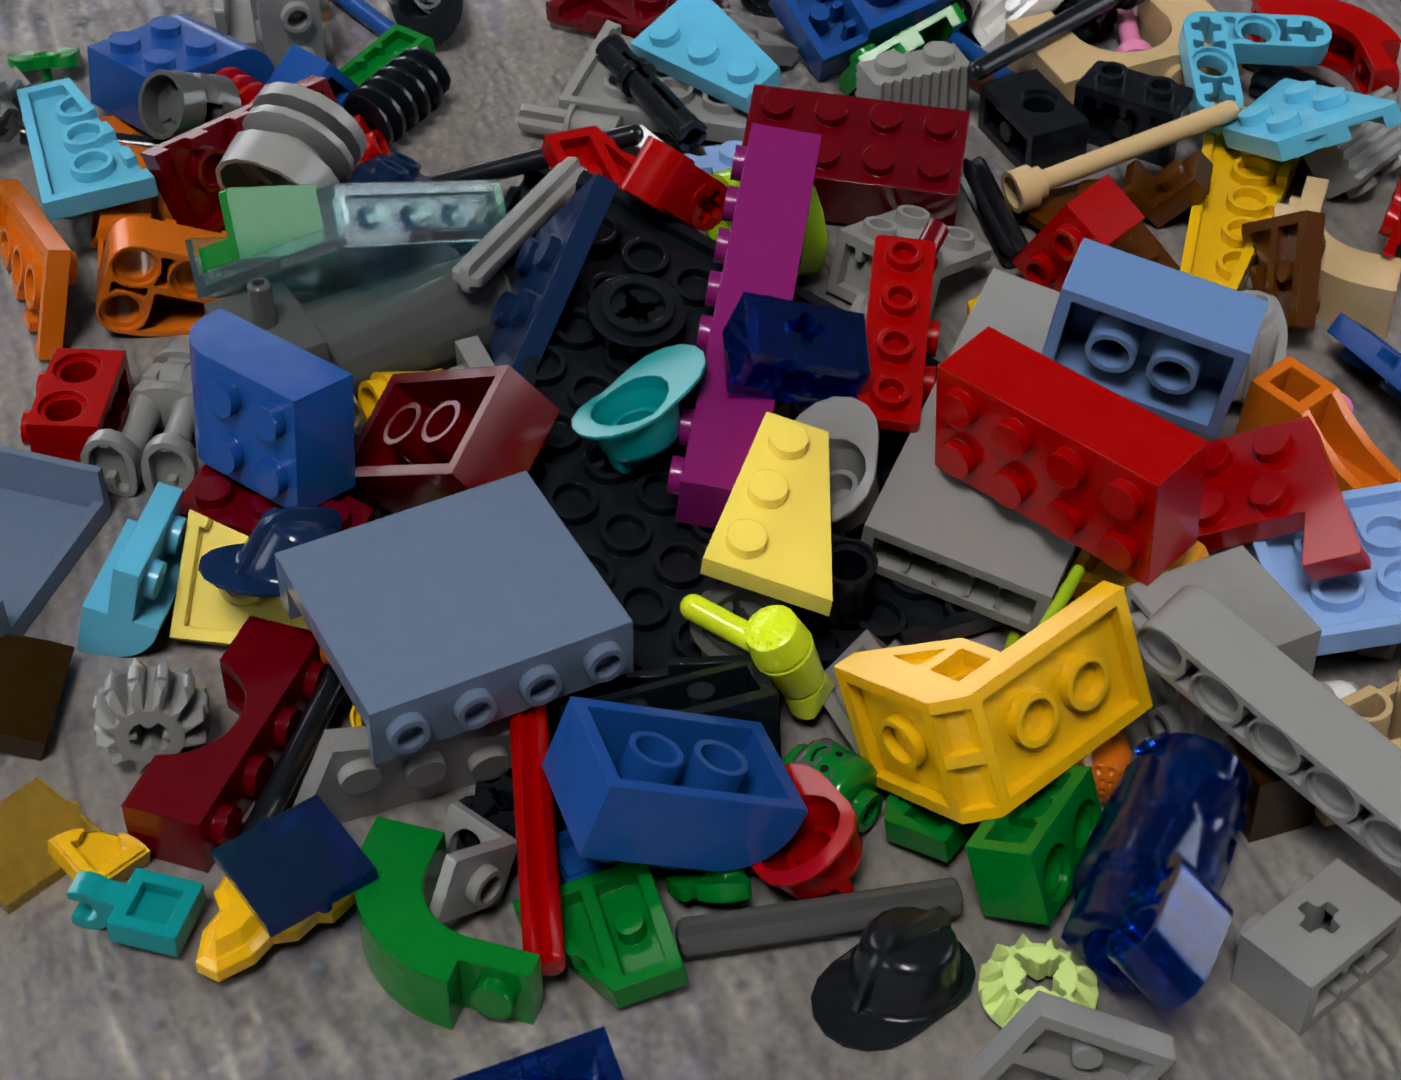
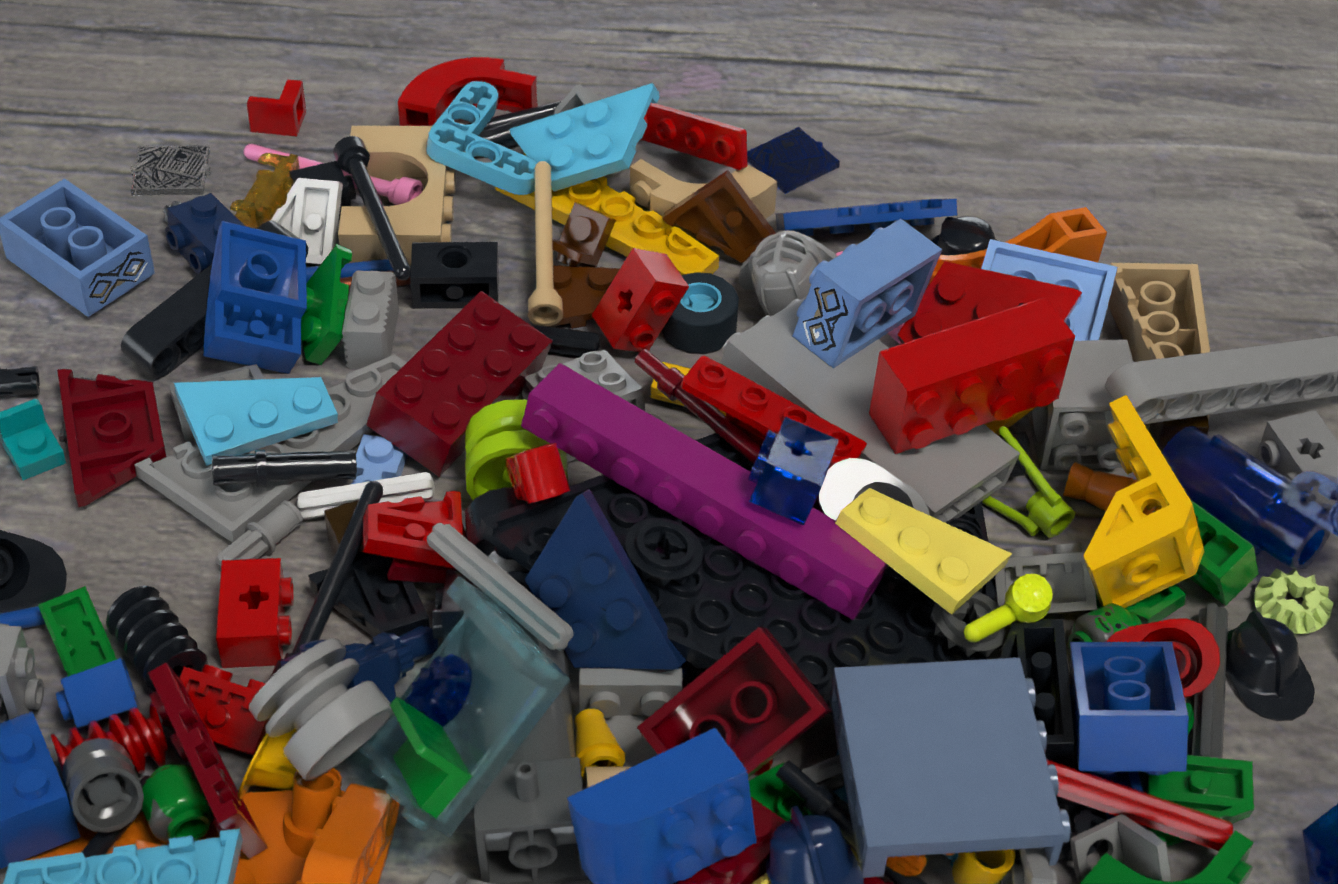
camera: 70 degrees left, 5 degrees up
(466, 134) = (253, 612): none -> red brick
(641, 408) = (777, 575): teal piece -> none
(1127, 103) = (487, 213): black bracket -> none

